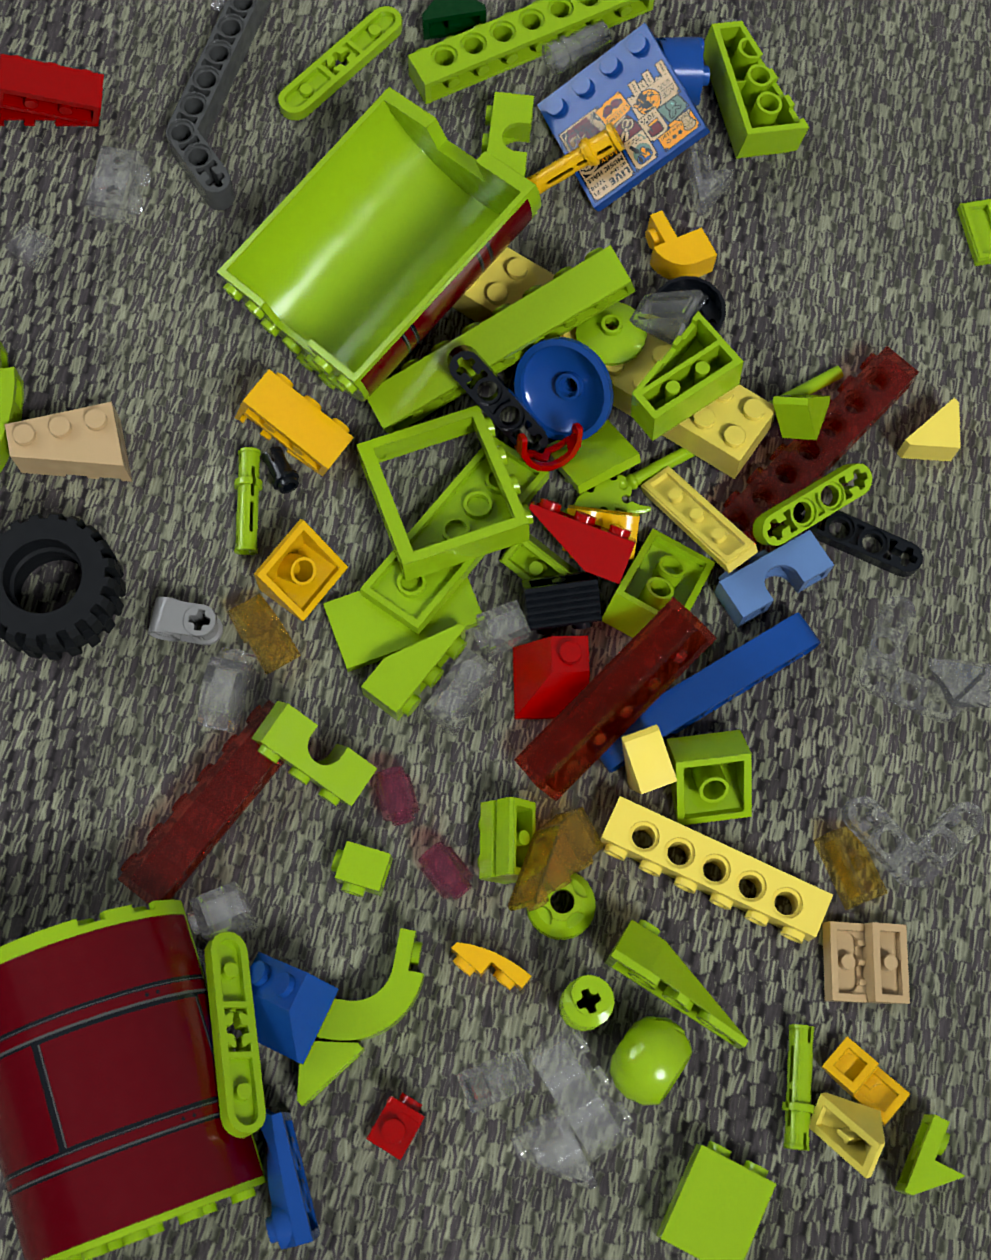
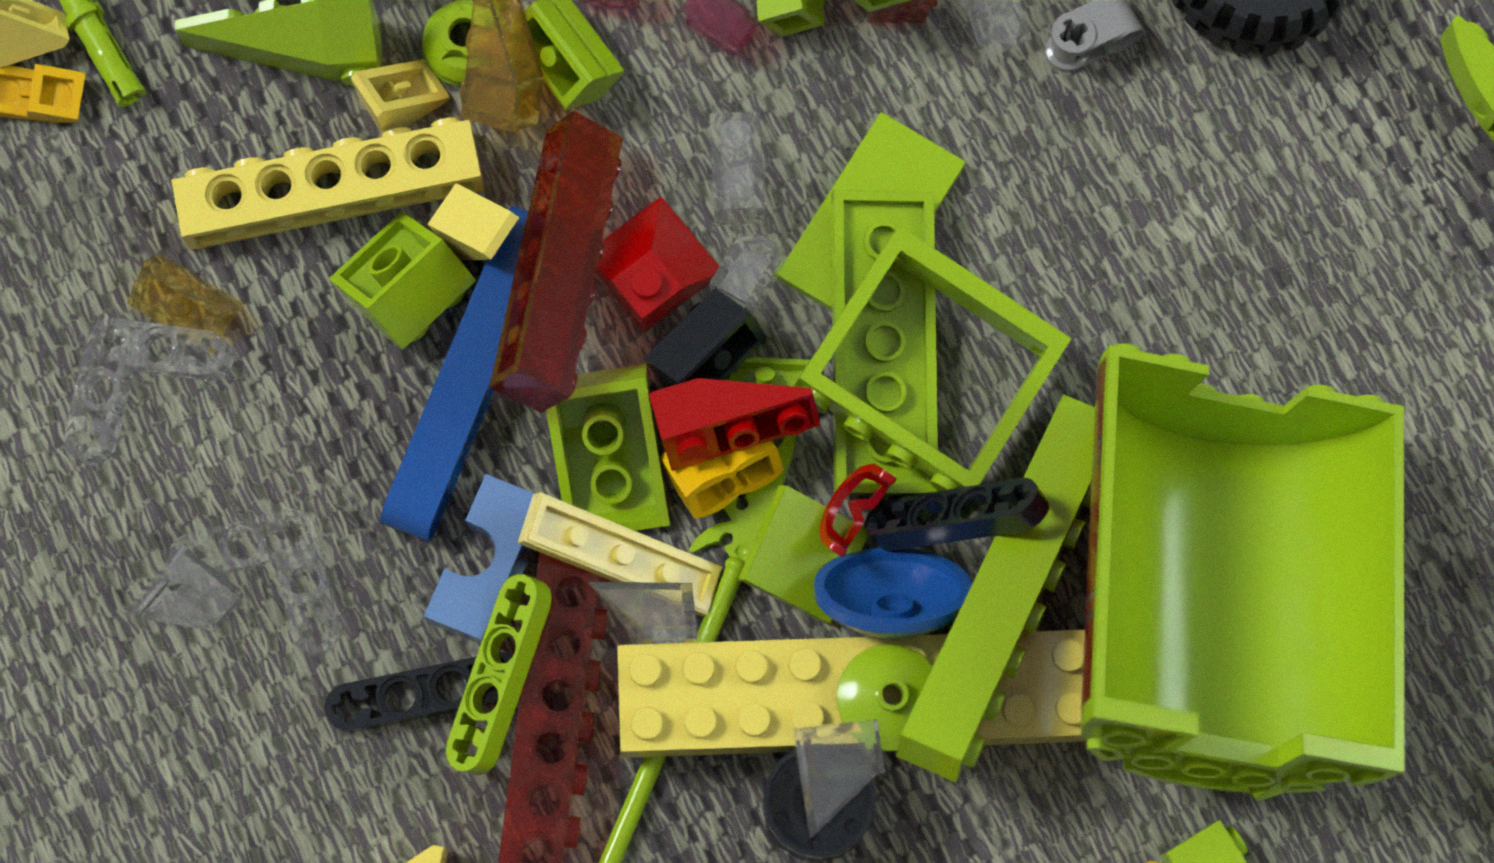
camera: 145 degrees right, 5 degrees up
(71, 443) = (1385, 127): tan wedge -> none
(248, 487) = (1160, 229): lime pin -> none
(264, 632) = (999, 81): clear yellow slope -> none
(280, 471) = (1141, 275): black pin -> none
(295, 422) = (1199, 322): yellow wedge -> none
(299, 571) = (1017, 174): yellow slope -> none
(405, 674) = (812, 148): lime slope -> none
(628, 895) = (399, 93): none -> light yellow slope
(686, 379) = (748, 677): lime wedge -> none
(702, 468) = (652, 610): none -> clear slope
(800, 415) = (591, 781): lime slope -> none
(865, 962) = (104, 211): tan slope -> none

